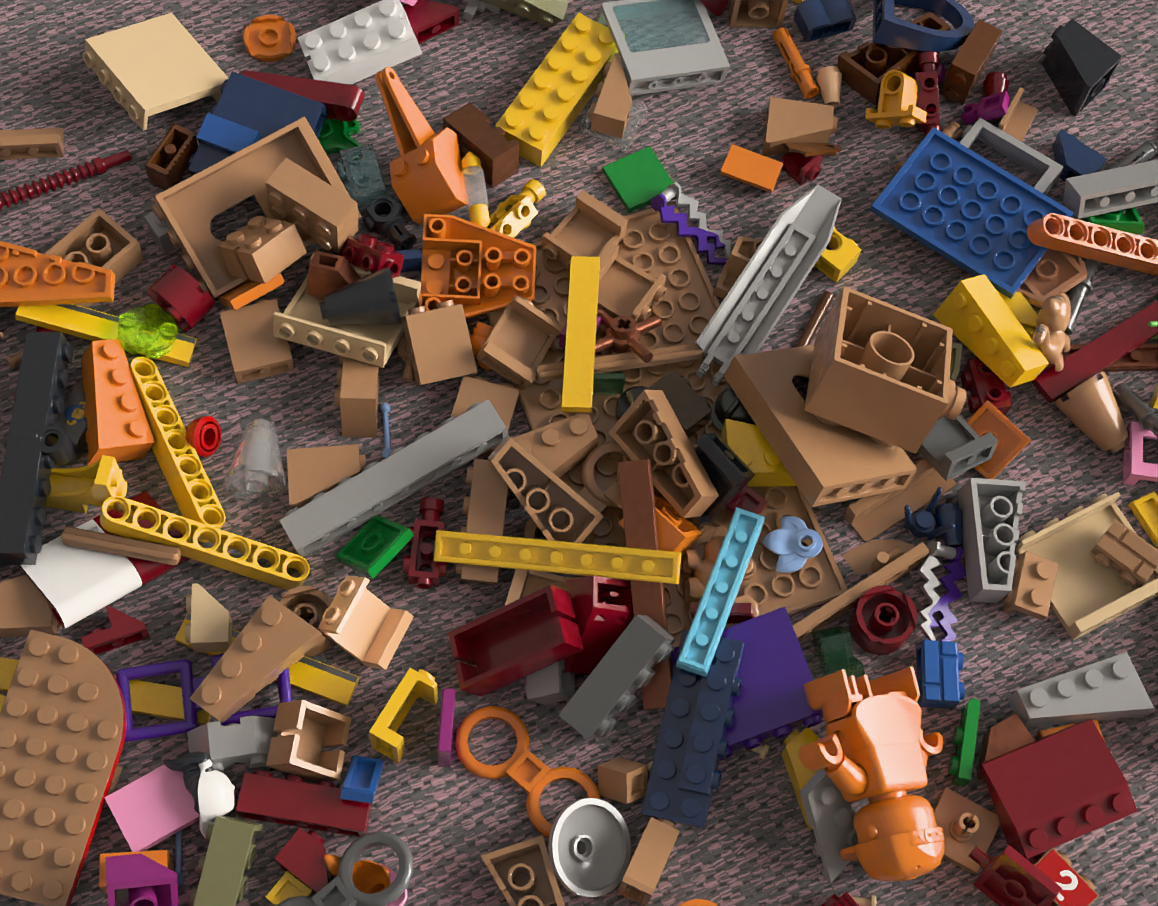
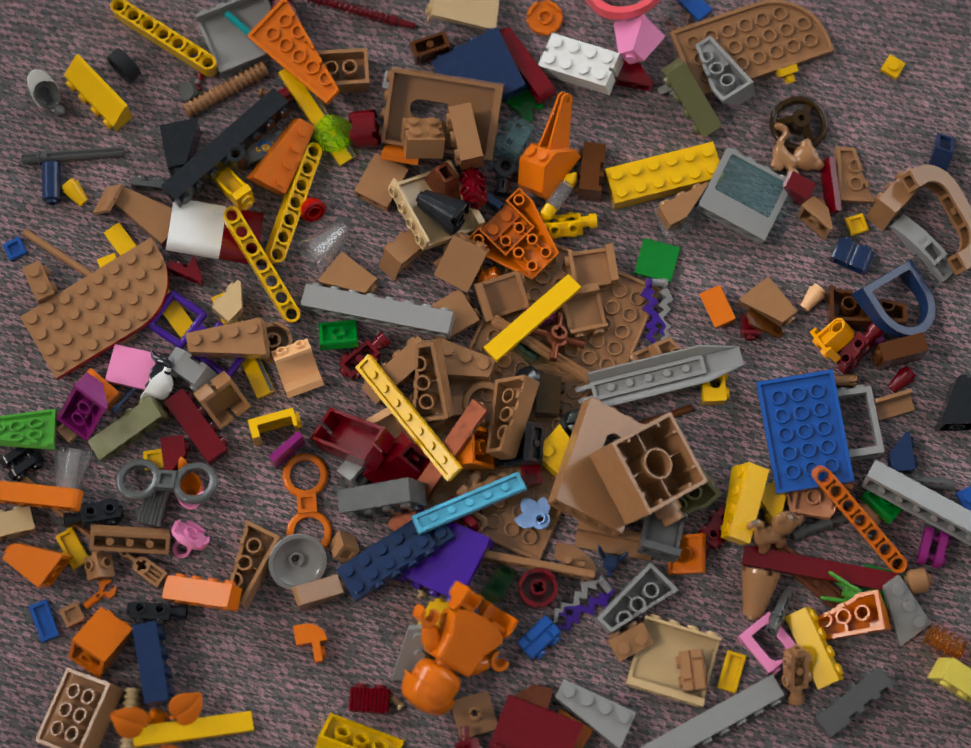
camera: 50 degrees right, 10 degrees up
(121, 545) = (223, 232): medium nougat axle -> none
(226, 134) = (463, 60): blue tile -> none
(362, 779) = (230, 438): blue tile -> none
(384, 408) = (411, 270): medium blue hinge -> none
(799, 70) = (805, 274): orange pin -> none
(949, 514) = (624, 575): dark blue cone -> none
(965, 739) = (518, 678): green hinge -> none
(989, 108) = (883, 386): magenta plate -> none

